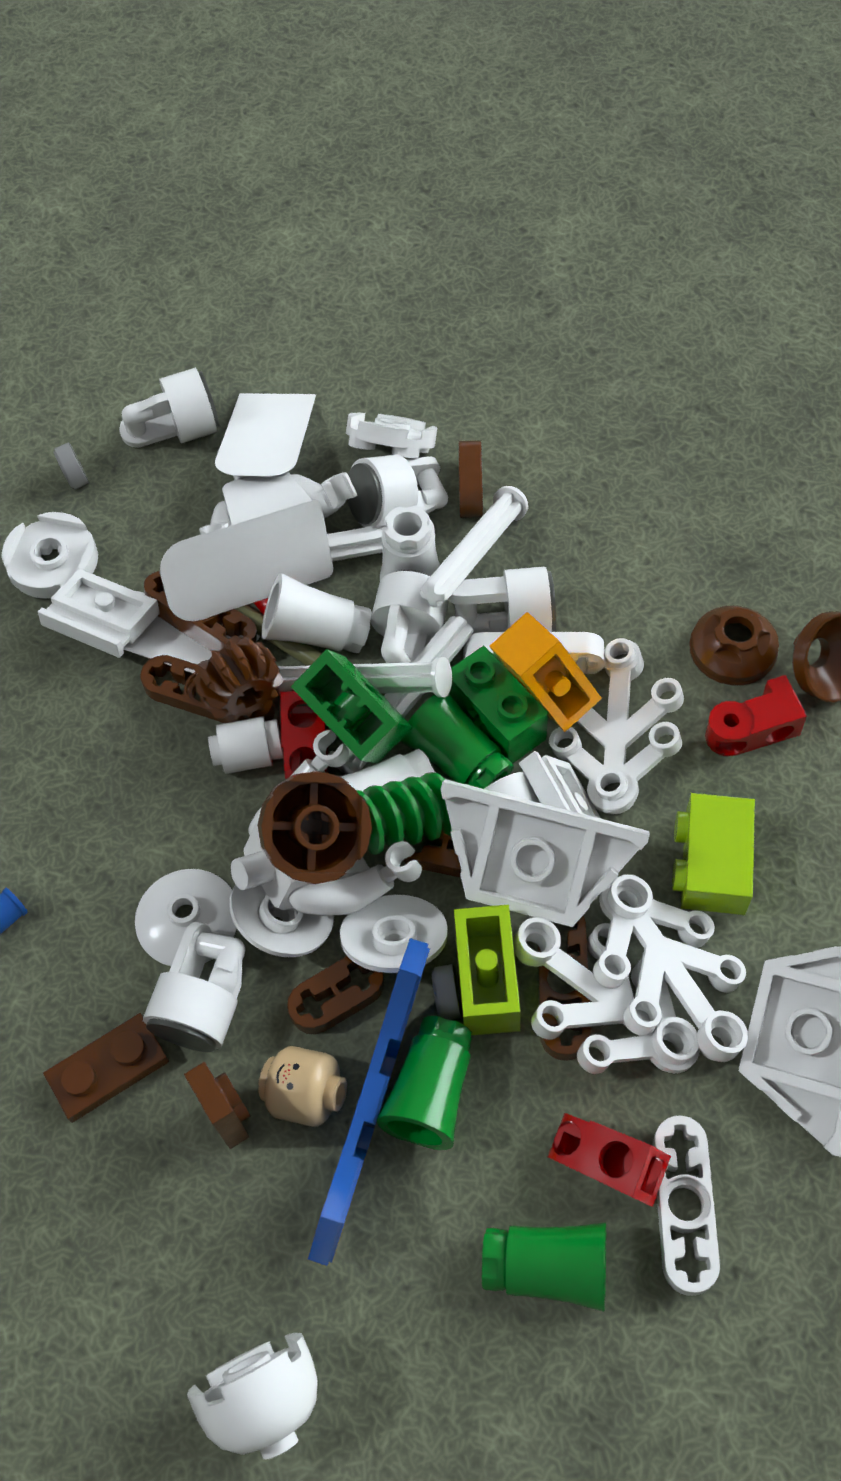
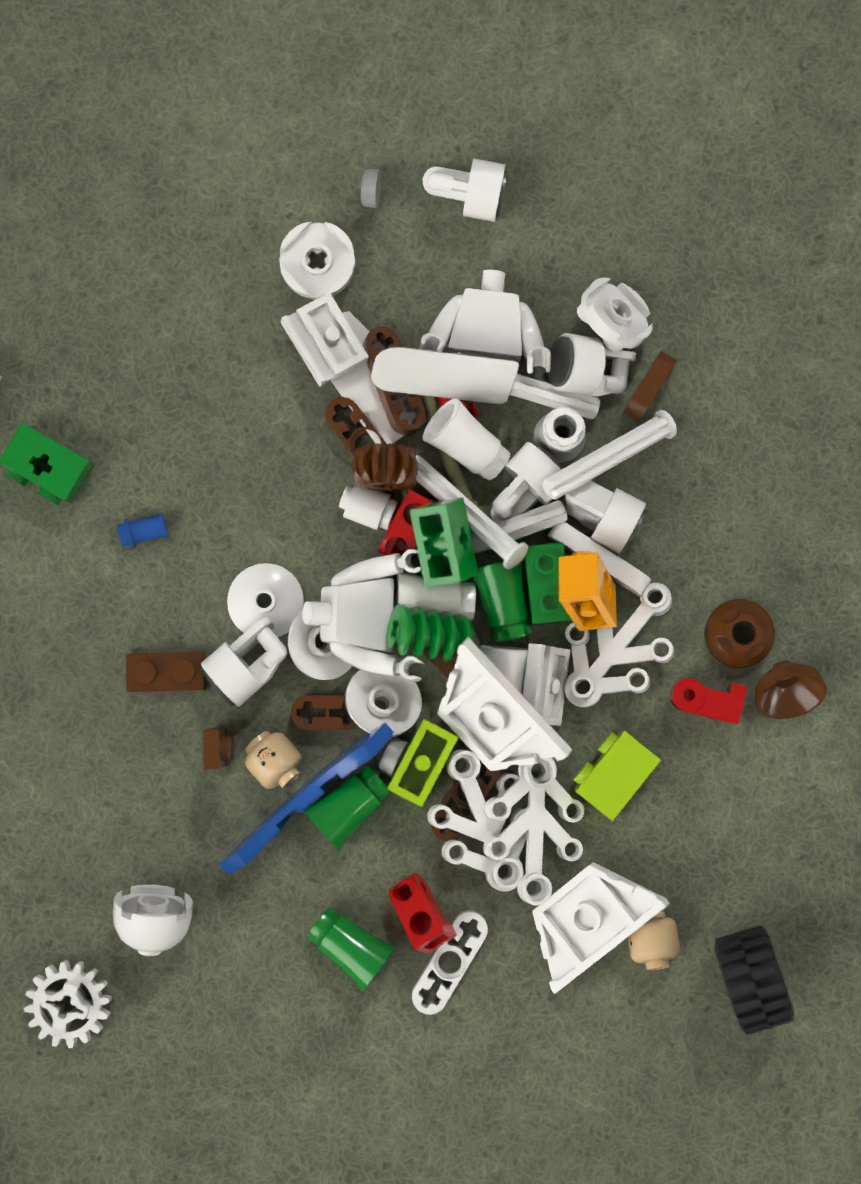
camera: 25 degrees right, 25 degrees up
(264, 434) = (526, 251): white sticker -> none
(314, 827) = (364, 625): reddish brown cylinder -> none

